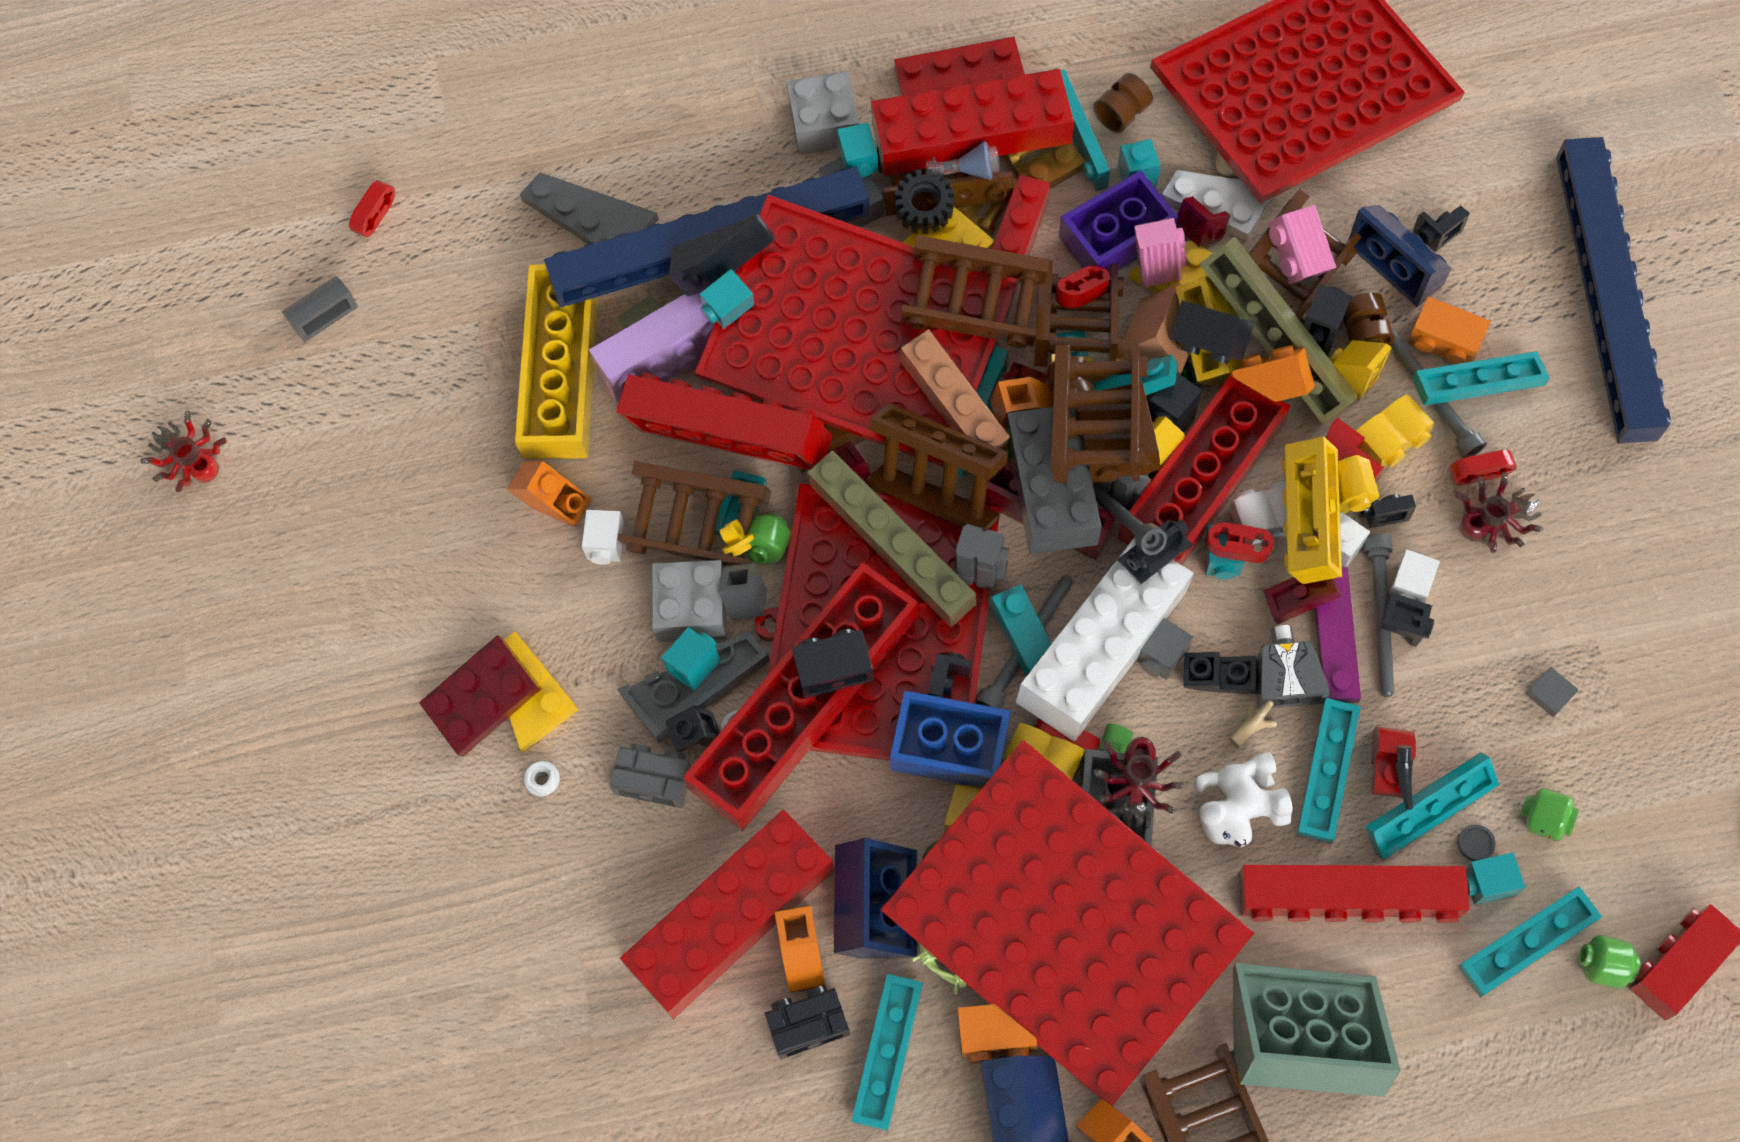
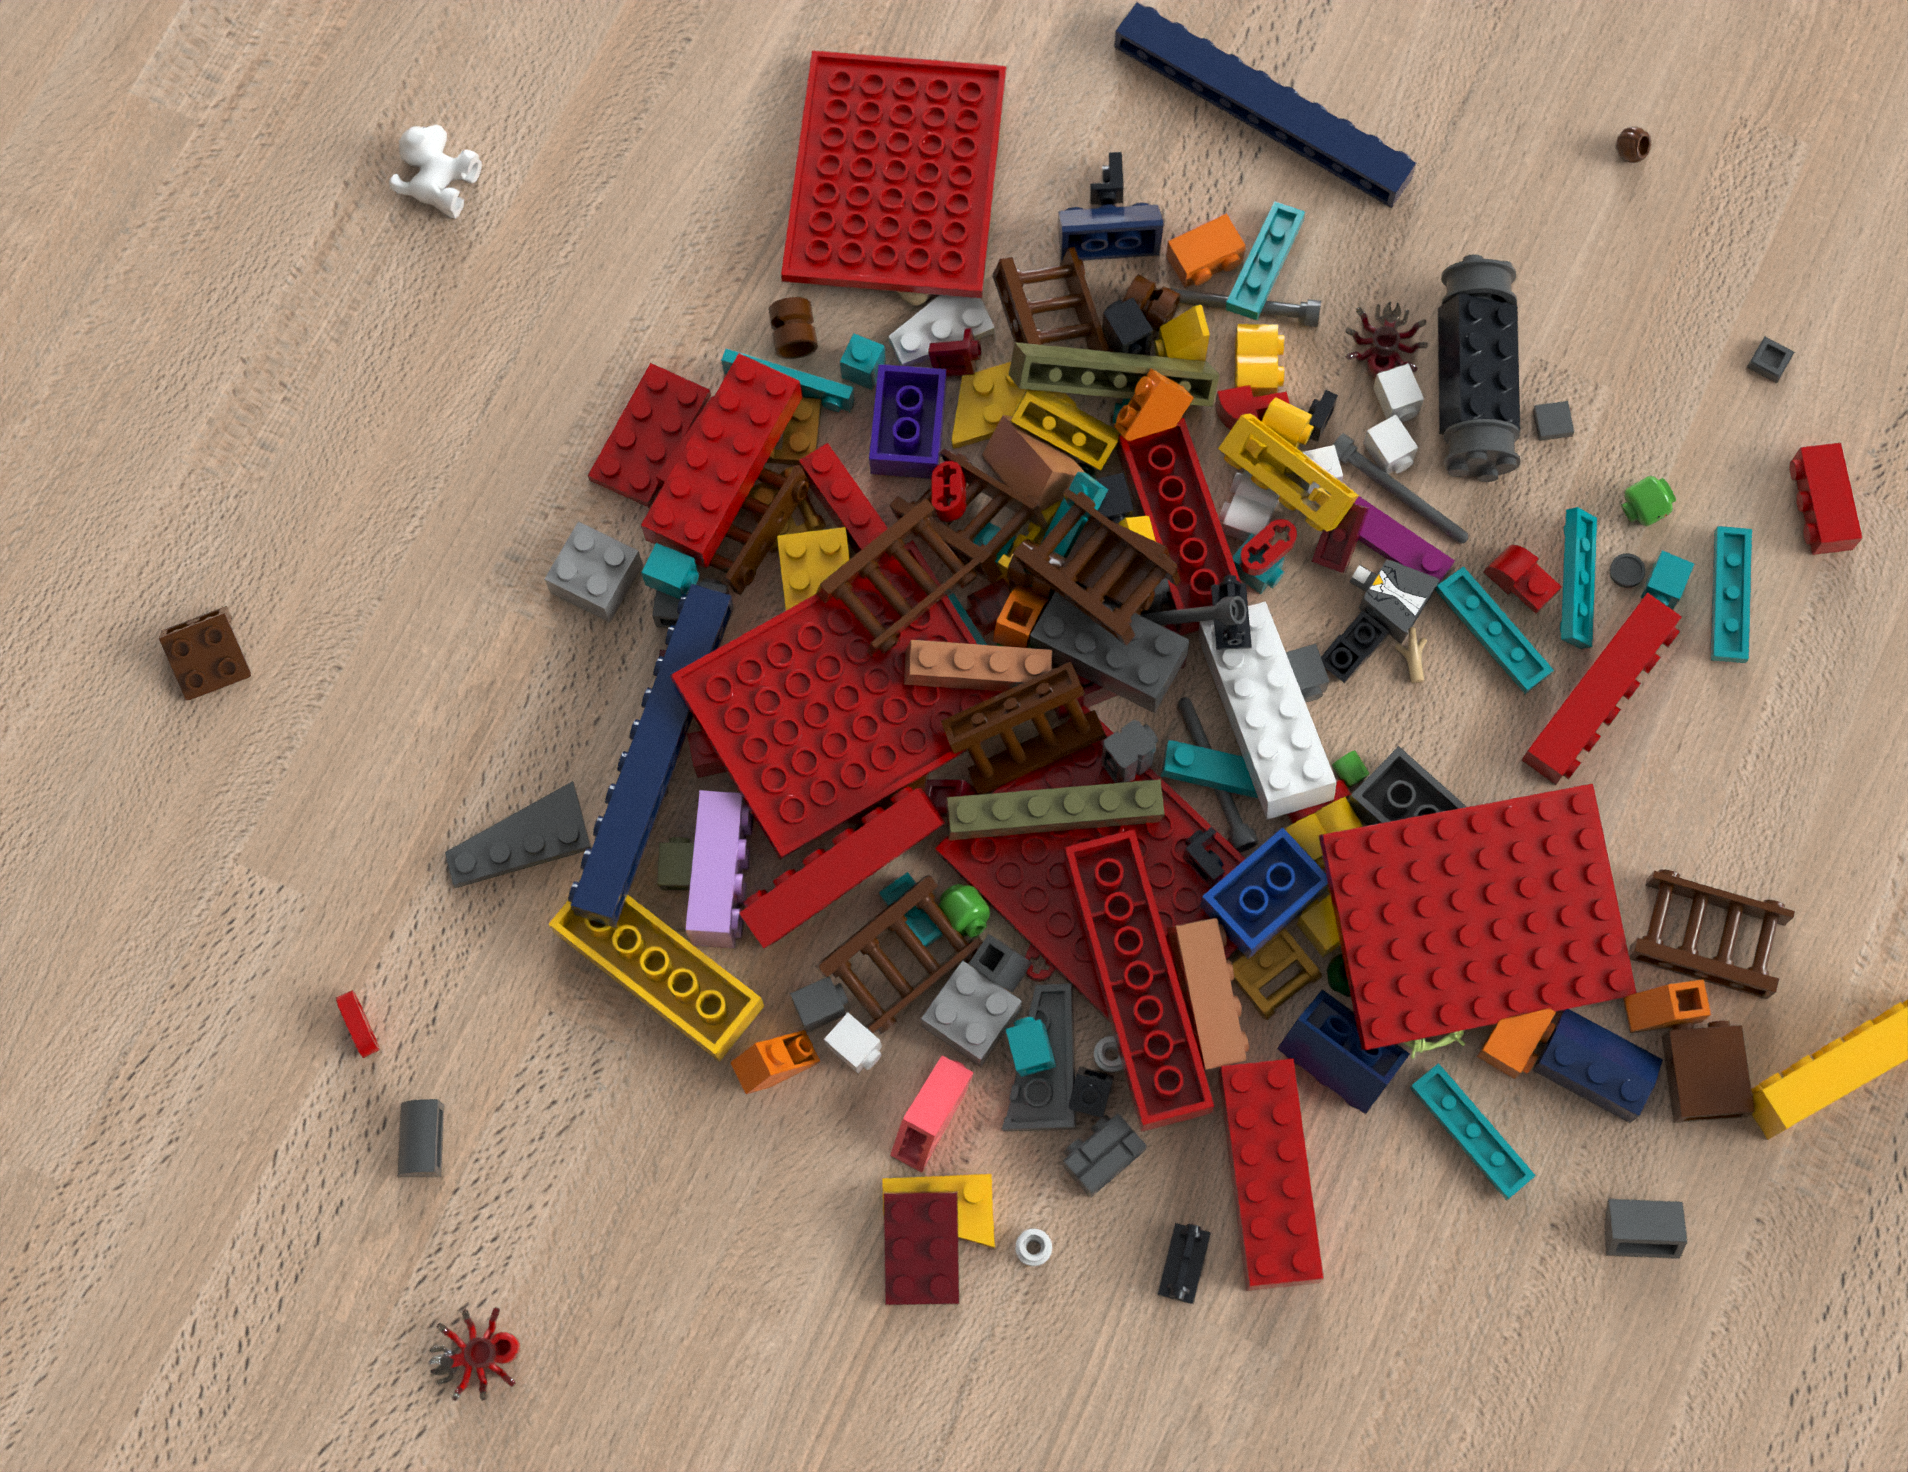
camera: 55 degrees left, 5 degrees up
(590, 626) = (931, 1113): none -> coral slope
(610, 901) = (1184, 1263): none -> black hinge
(615, 490) = (819, 1003): none -> dark grey brick
(710, 256) = (695, 758): black slope -> none
(726, 300) = (745, 781): teal brick -> none
(735, 538) = (957, 935): yellow plate -> none
(800, 948) = (1342, 1138): orange slope -> none
(806, 1022) = (1404, 1176): black brick -> none
(832, 662) = (1141, 933): black brick -> none
(835, 758) = (1208, 992): none -> nougat brick
(901, 791) = (1266, 965): none -> pearl gold plate
(928, 219) = (771, 534): black tyre -> none
(979, 162) = (767, 484): piece -> none
(1138, 775) = (1407, 770): animal -> none
(1160, 252) = (967, 408): bright pink brick -> none
(1211, 331) = (1080, 426): black brick -> none
(1229, 820) = (1482, 734): white animal -> none
(1301, 245) = (1053, 297): bright pink brick -> none
(1311, 1031) = (1688, 802): sand green slope -> none
(1404, 773) = (1544, 576): black helmet -> none
(1407, 618) = (1420, 475): black bracket -> none
(1463, 554) = (1398, 393): none -> white brick
(1487, 465) = (1338, 320): red beam -> none
(1539, 596) = (1479, 368): none -> brick
(1609, 962) = (1788, 551): bright green head -> none

